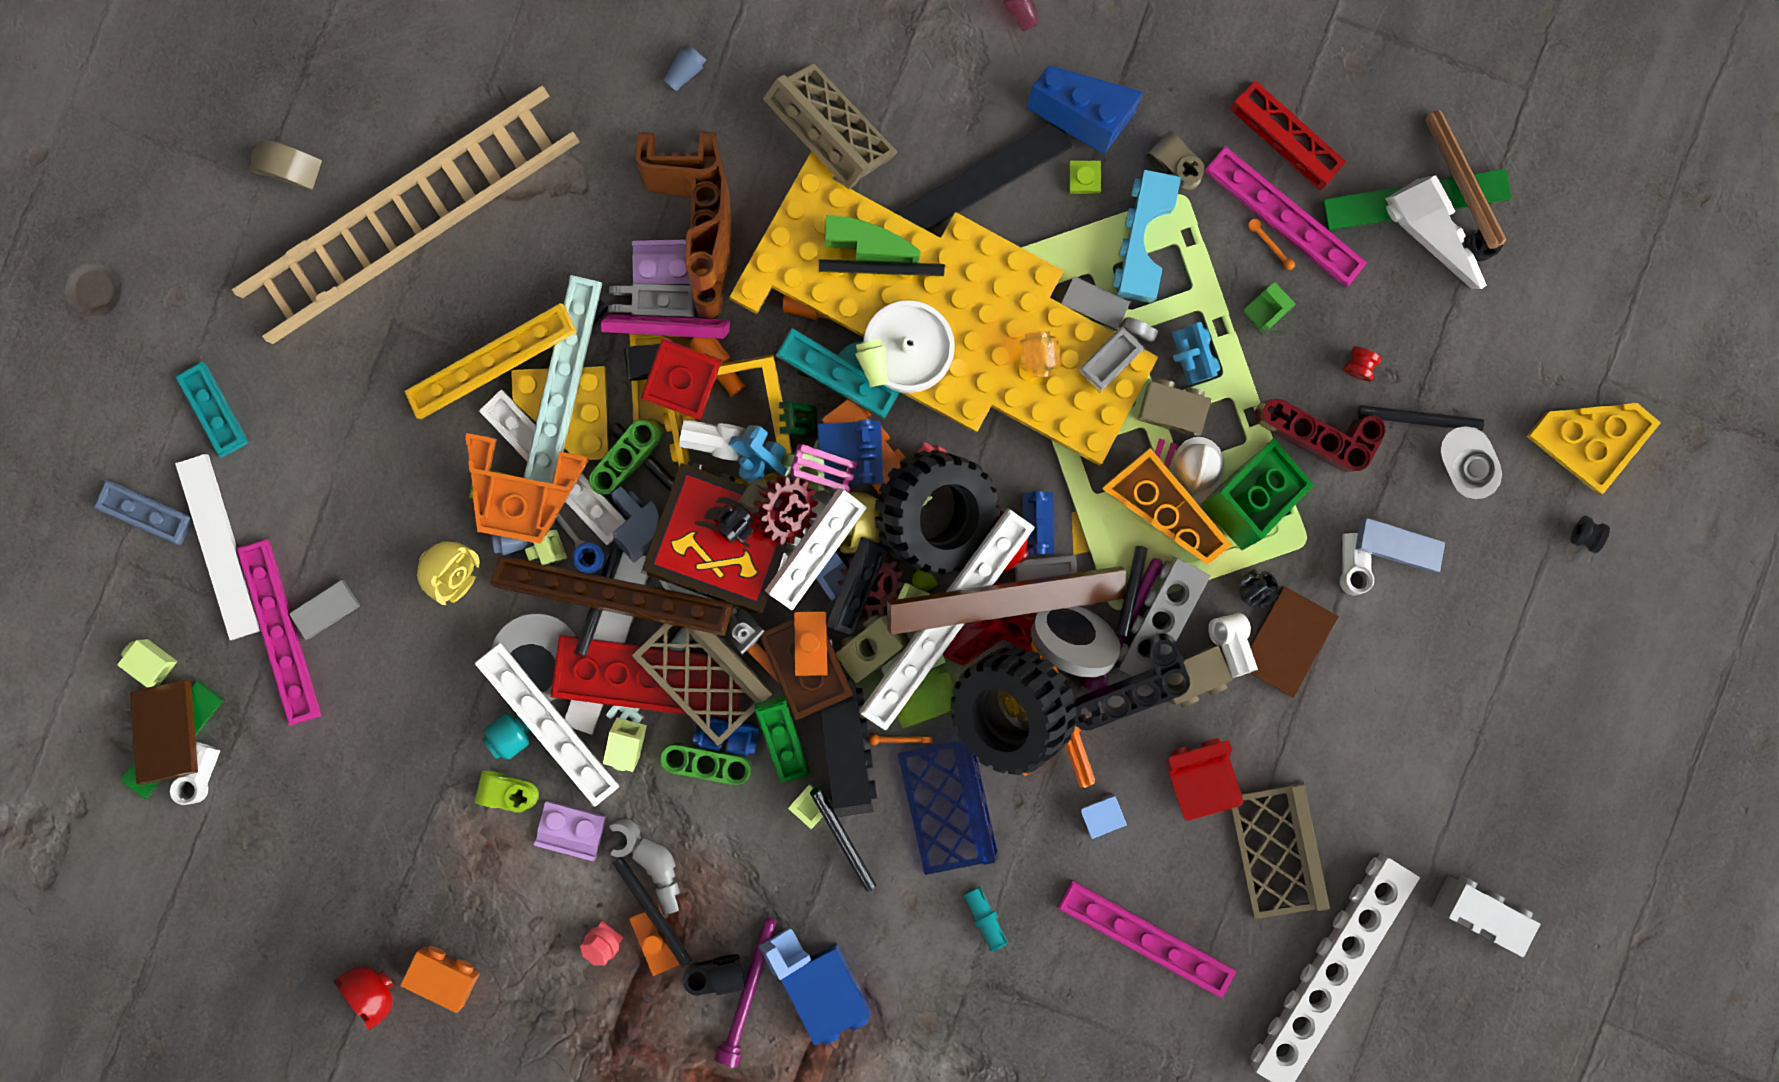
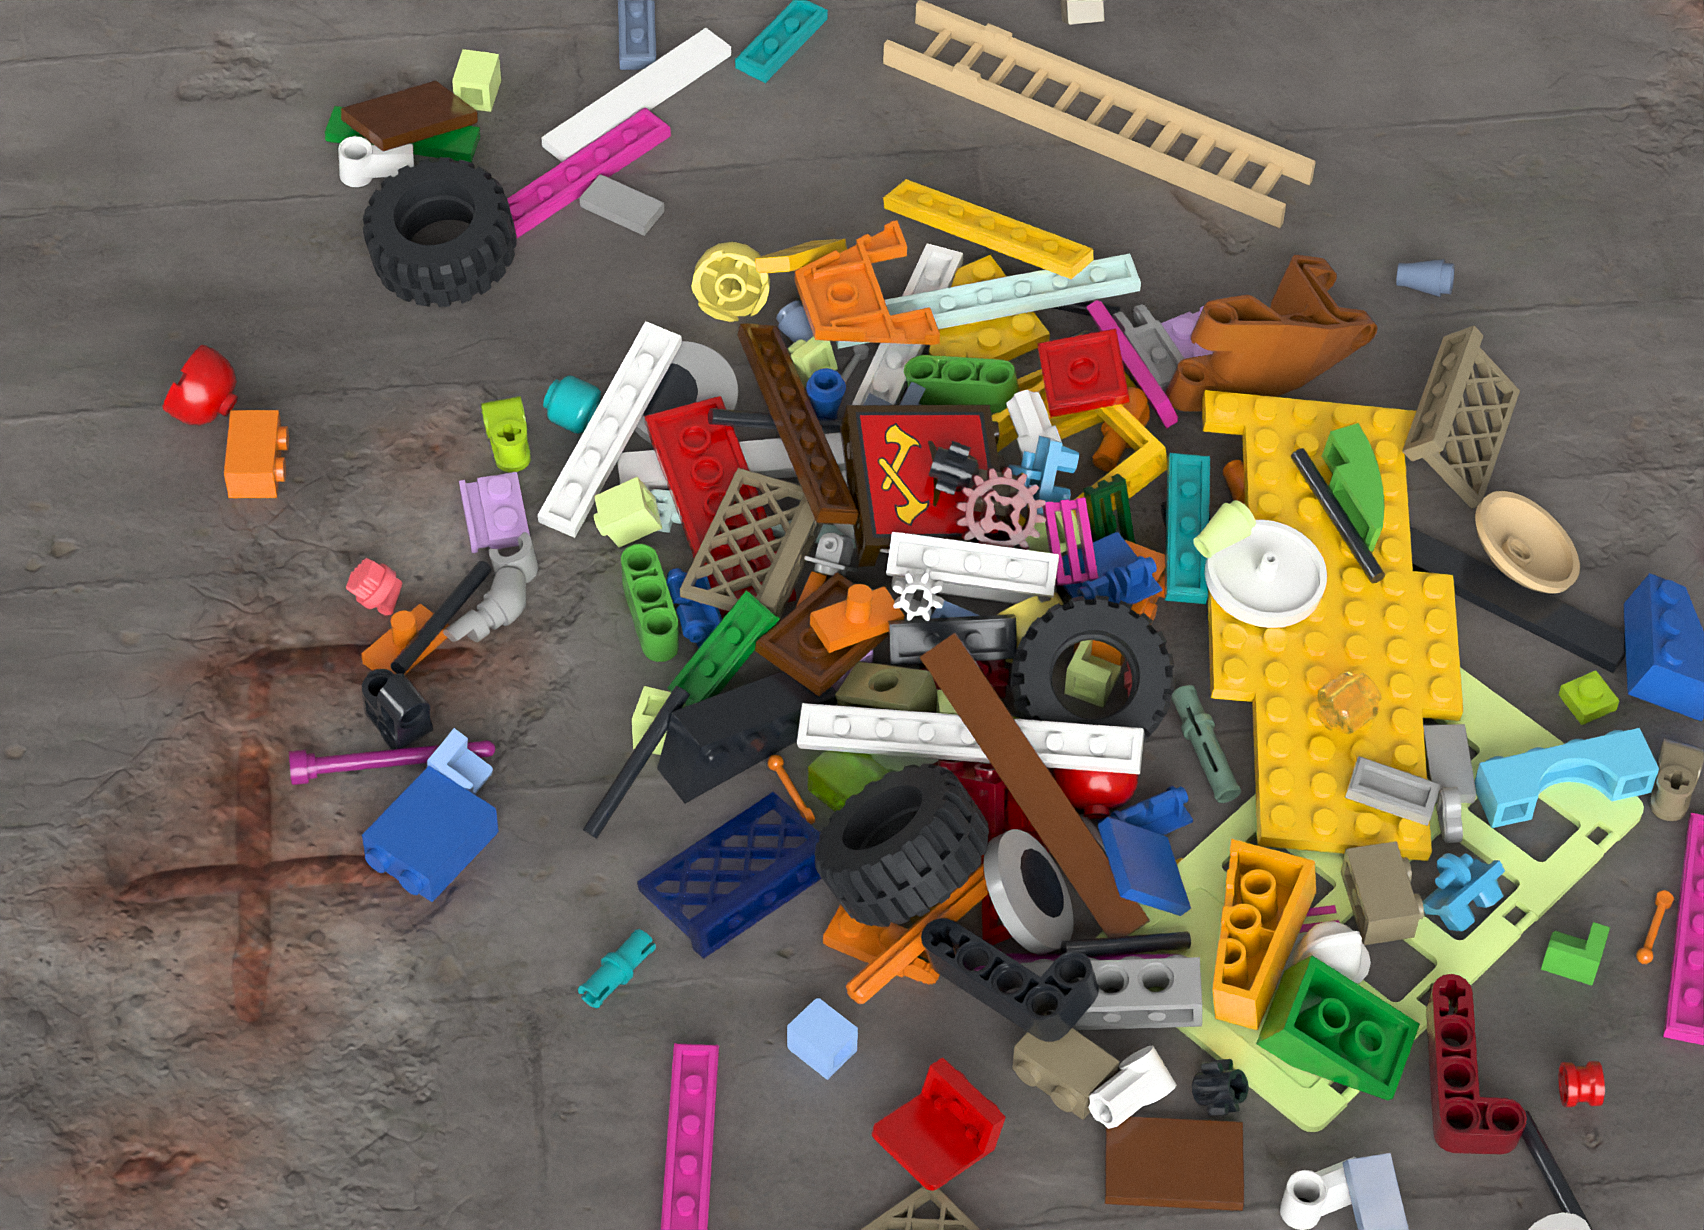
camera: 60 degrees right, 35 degrees down
(268, 788) = (430, 195): none -> black tyre
(455, 513) = (798, 256): none -> yellow tile
(823, 599) = (929, 597): none -> white gear
(956, 146) = (1526, 542): none -> tan dish
(999, 451) = (1189, 706): none -> sand green pin
(1087, 552) = (1143, 866): none -> blue tile

